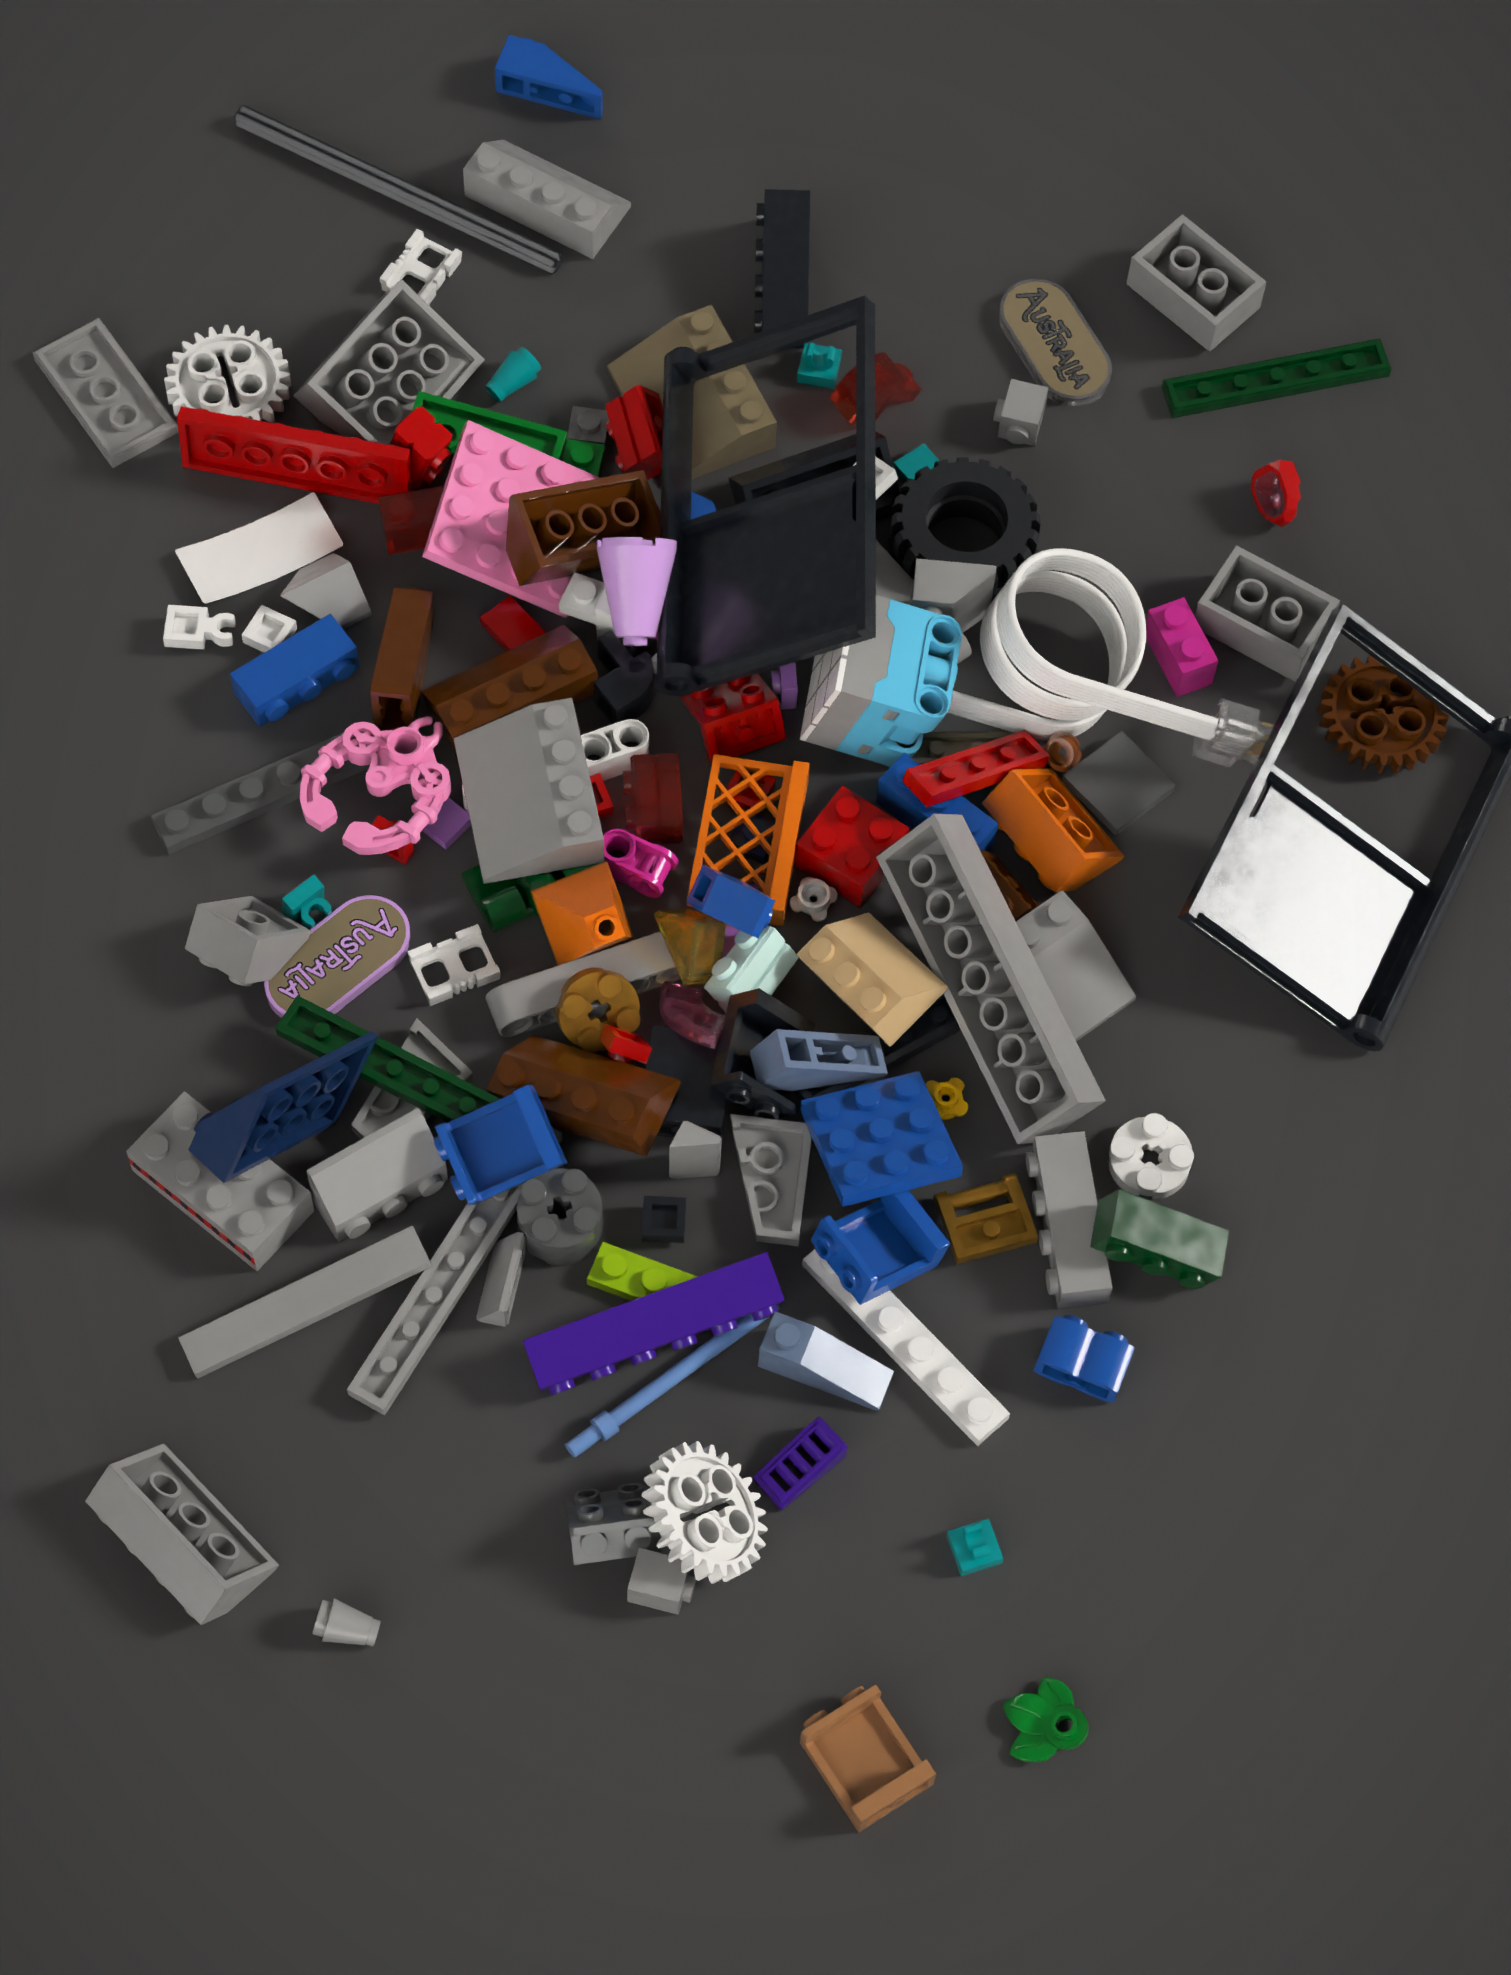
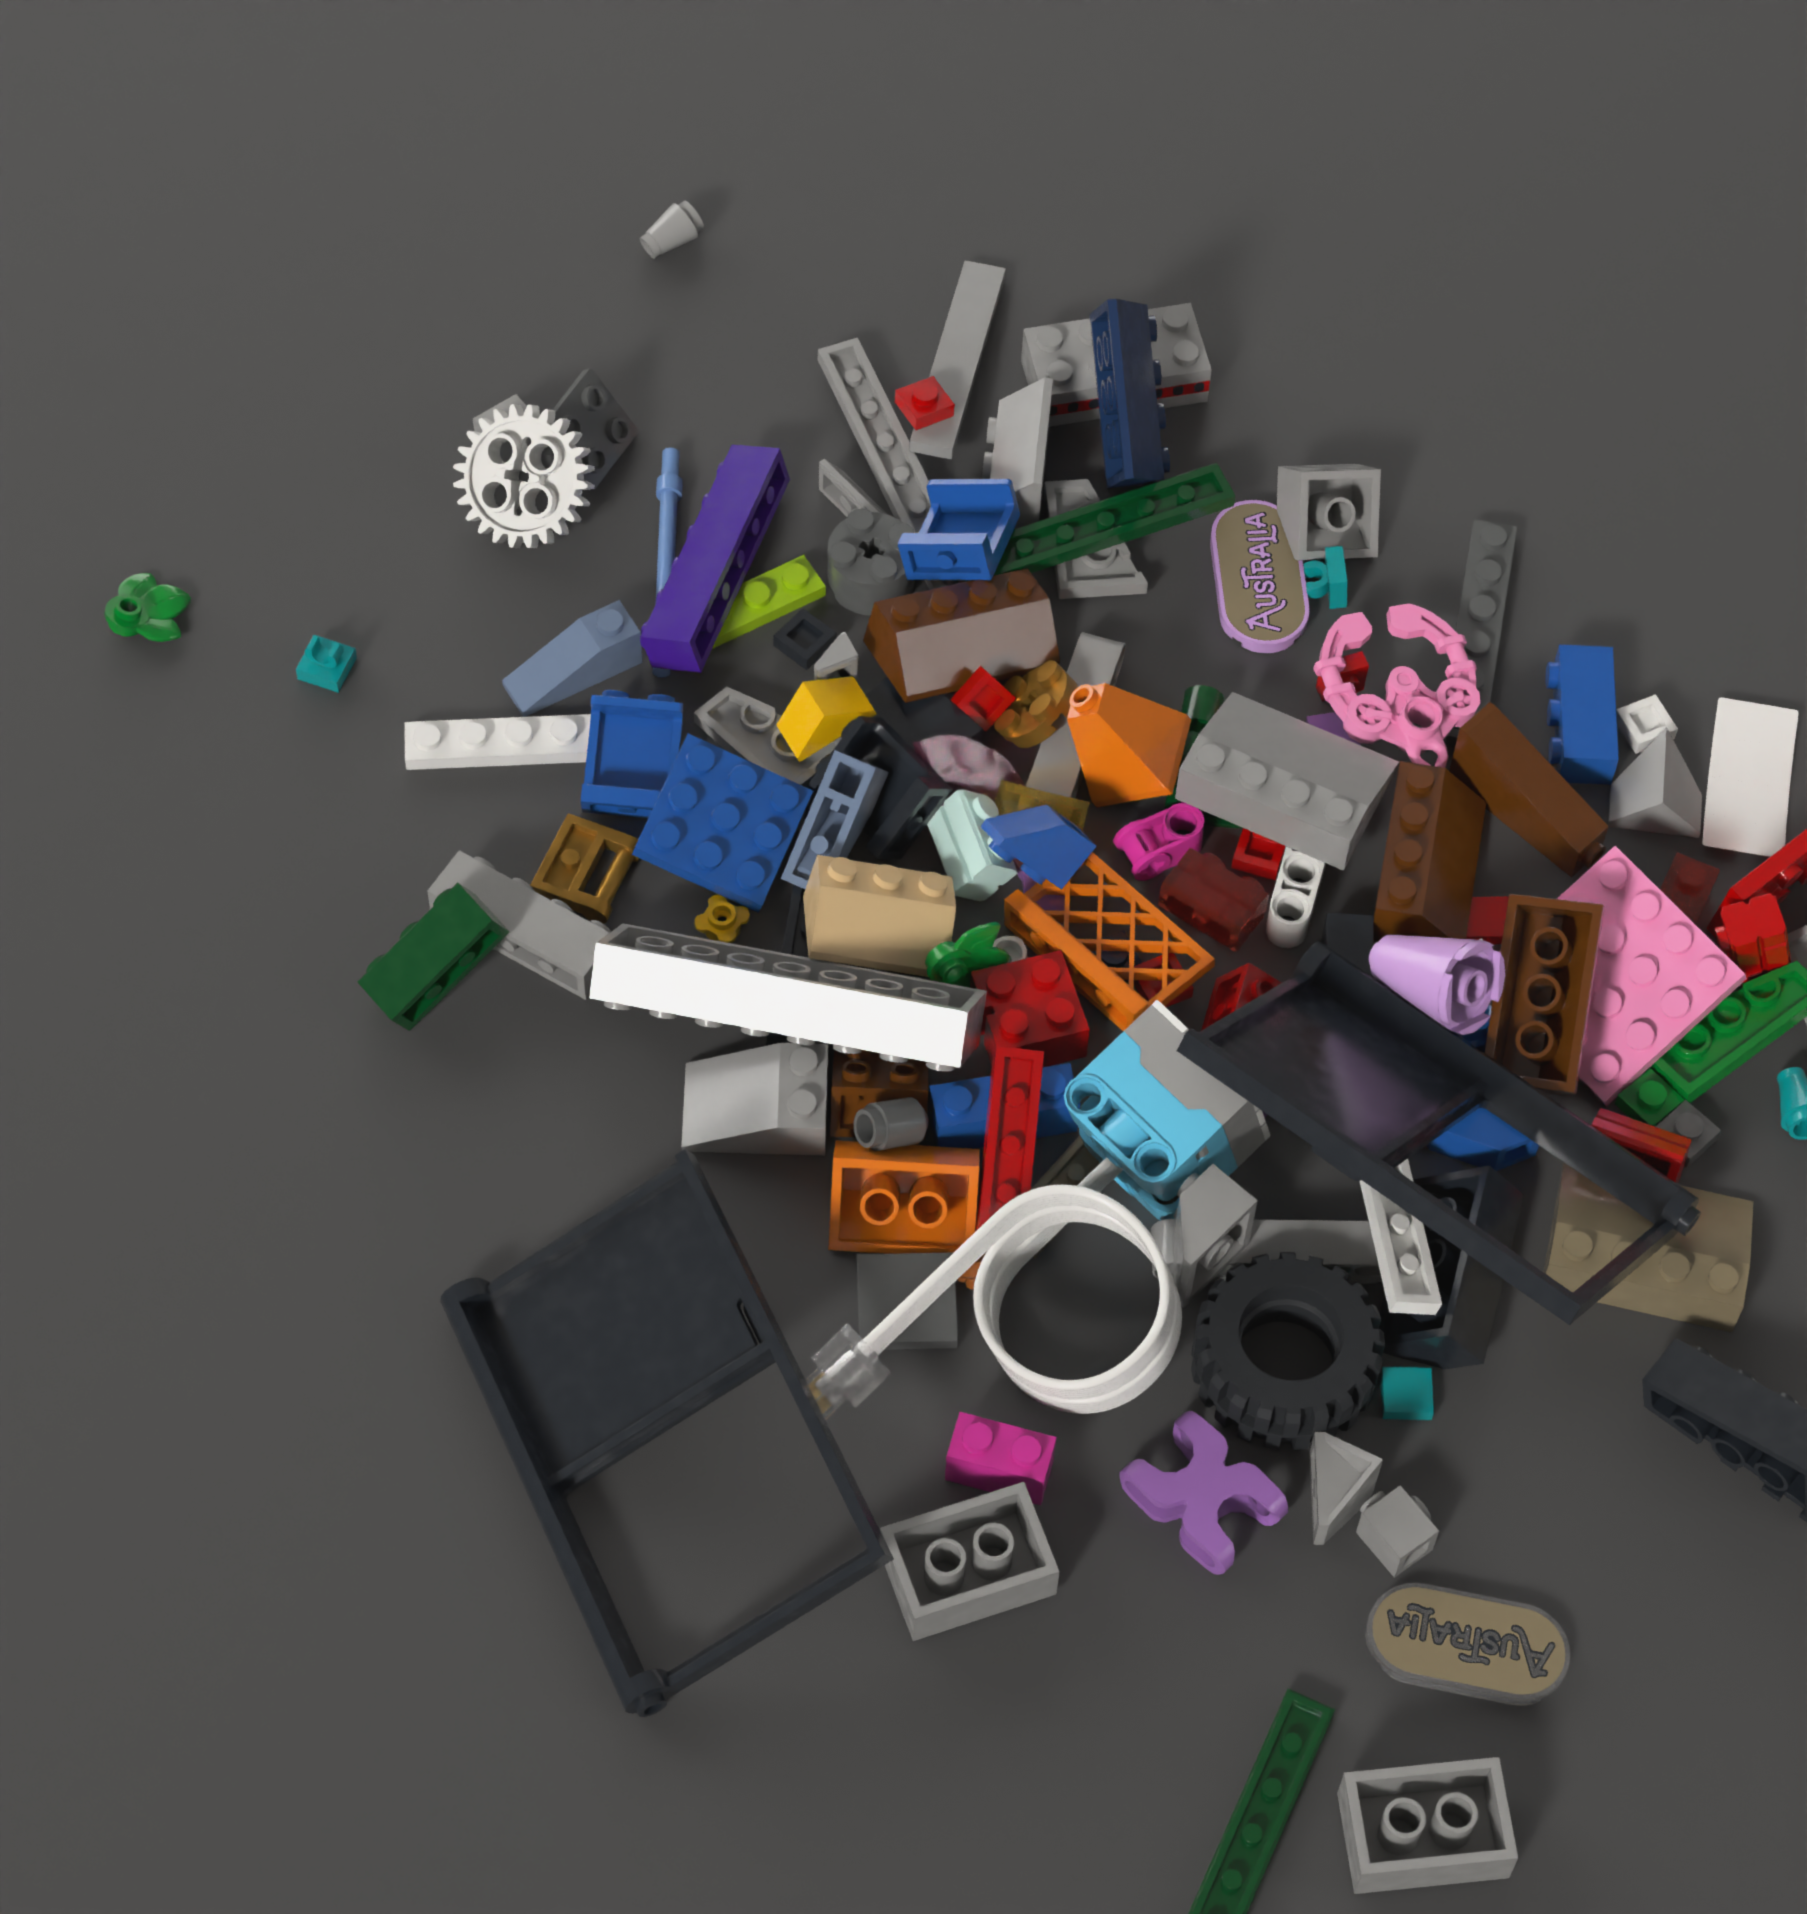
camera: 130 degrees right, 5 degrees down
(180, 1532) = (841, 178): light grey slope -> none
(192, 626) = (1697, 669): white plate -> none
(386, 1274) = (924, 403): none -> red plate
(448, 954) = (1164, 649): white piece -> none
(743, 1129) = (821, 713): none -> yellow slope
(804, 1440) = (513, 620): dark purple slope -> none
(819, 365) = (1608, 1393): teal tile -> none
(865, 1757) = (240, 475): medium nougat panel -> none
(869, 900) = (973, 951): none -> green plate
(892, 383) = (1531, 1409): clear red brick -> none
(1023, 851) = (891, 1124): none -> dark grey brick
(1032, 449) = (1340, 1483): none -> light grey slope
(1084, 1358) = (395, 843): blue brick -> none
(1097, 527) = (1203, 1492): none -> medium lavender piece
(1150, 1134) = (516, 1014): white plate -> none
(1276, 491) = (1103, 1702): red rock -> none
(1382, 715) = (730, 1573): reddish brown gear -> none

